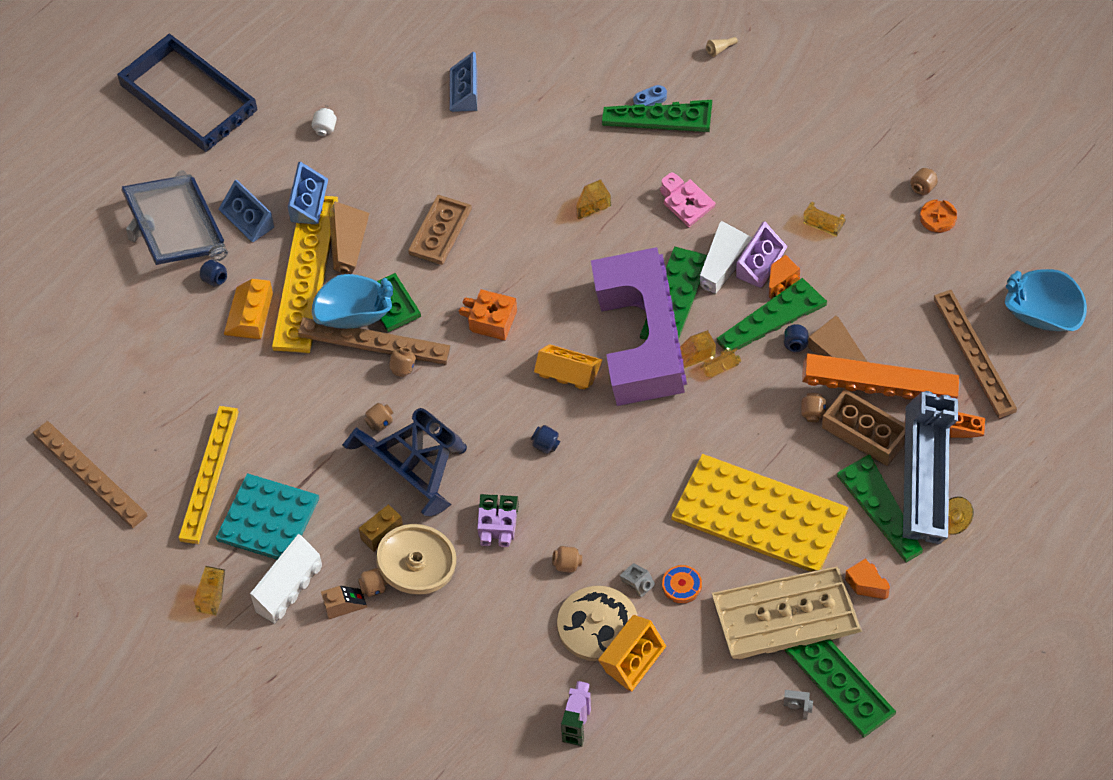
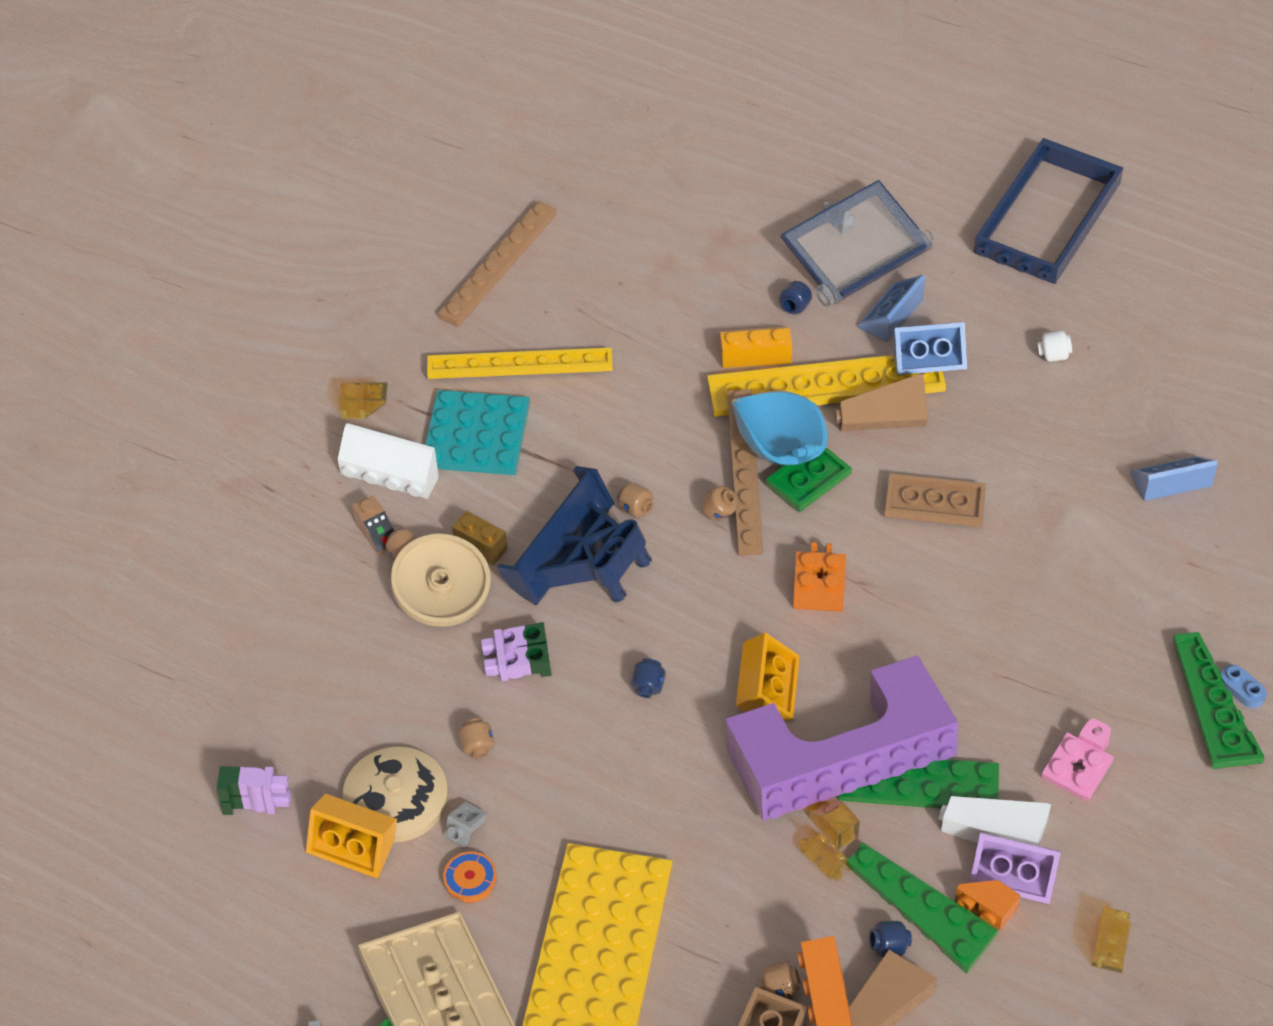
camera: 75 degrees right, 5 degrees down
(593, 199) = (1040, 651): clear yellow slope -> none

